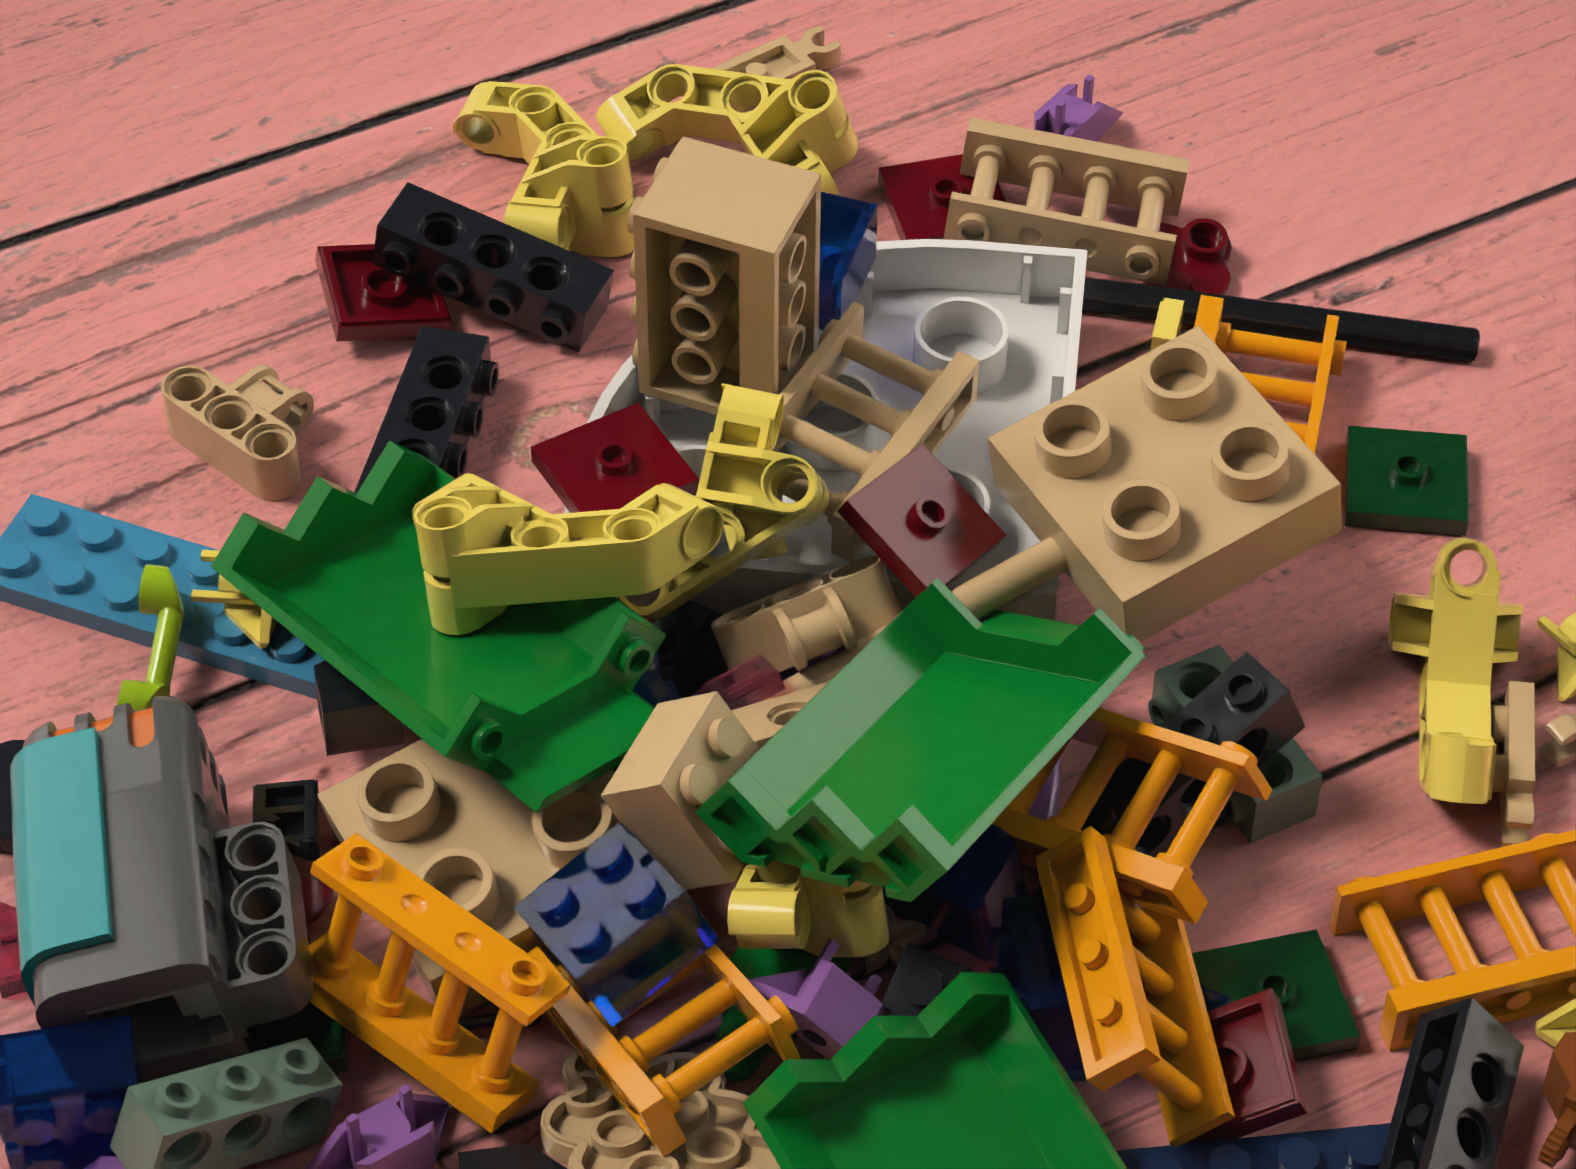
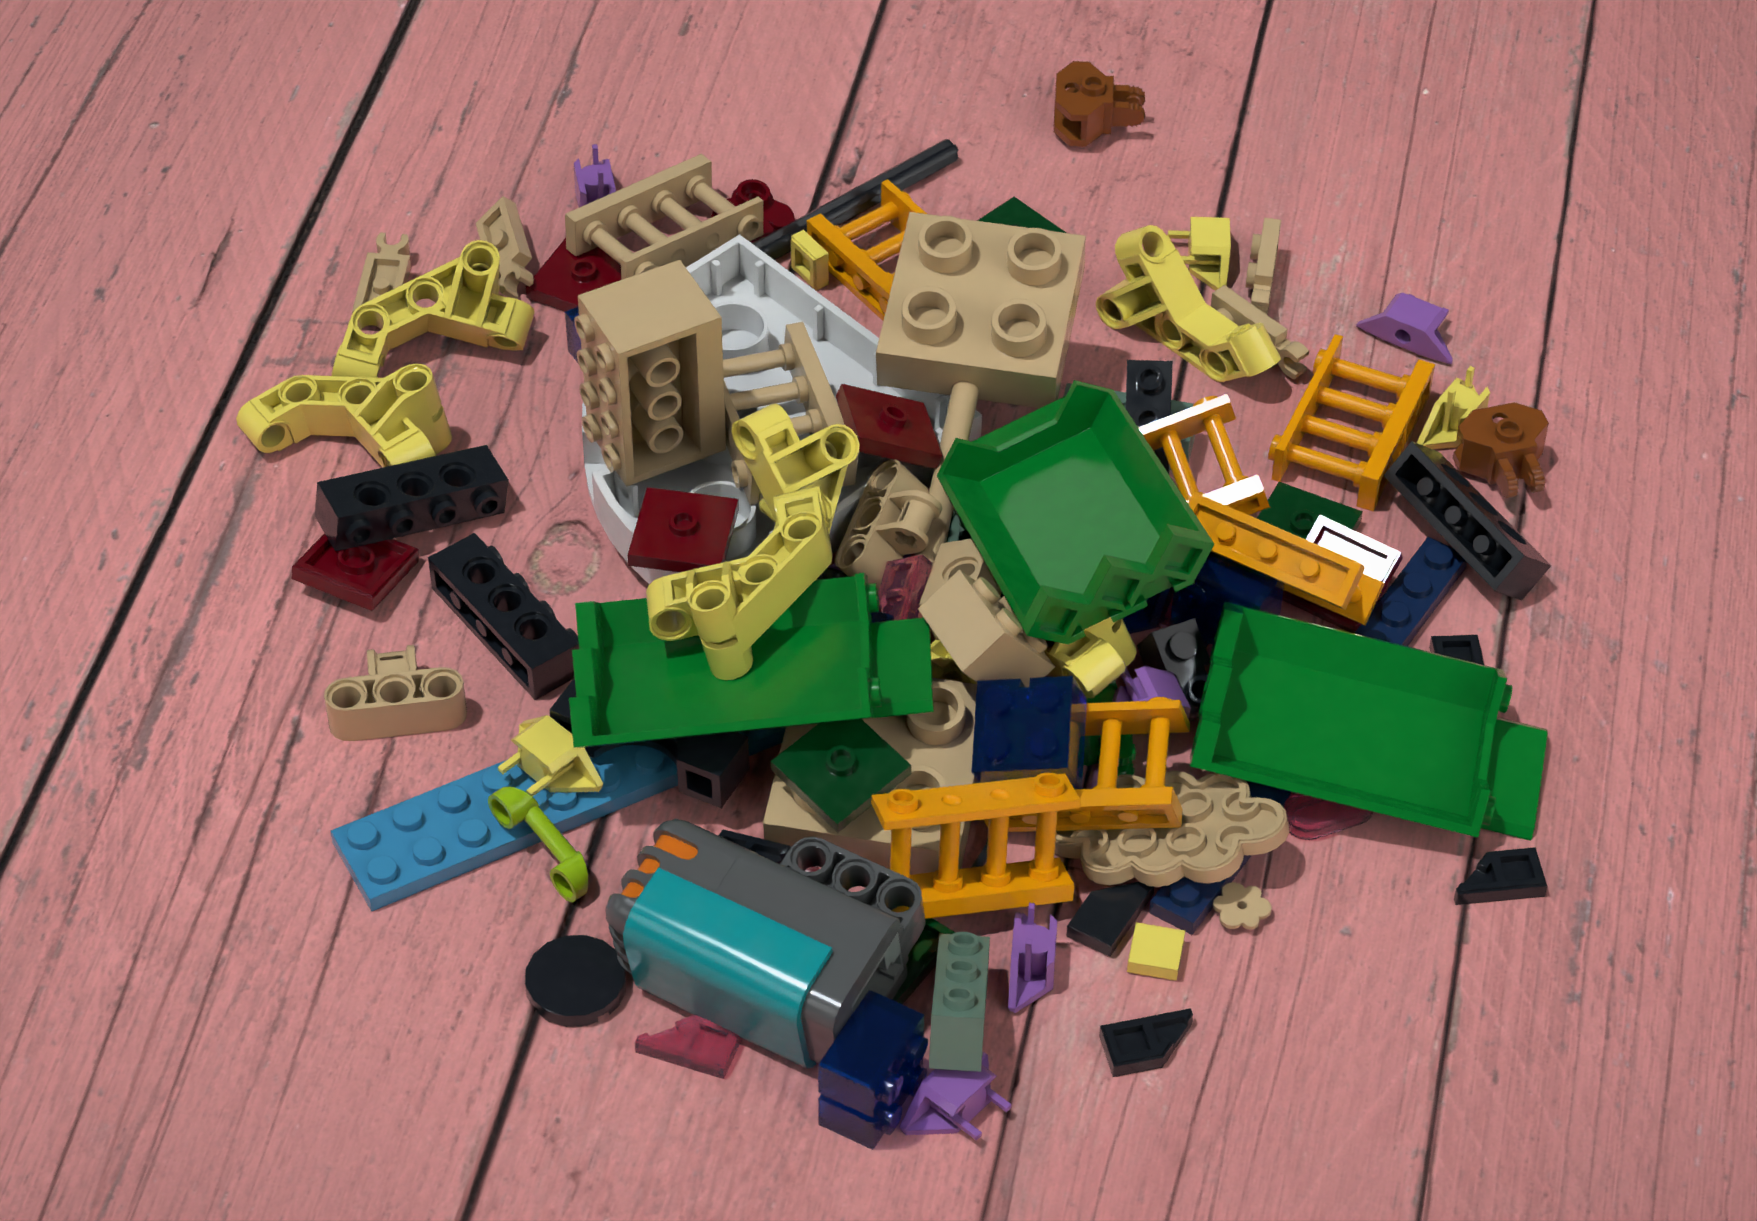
camera: 50 degrees left, 0 degrees up
(407, 798) = (840, 769): none -> dark green plate
(907, 124) = (505, 231): none -> tan plate

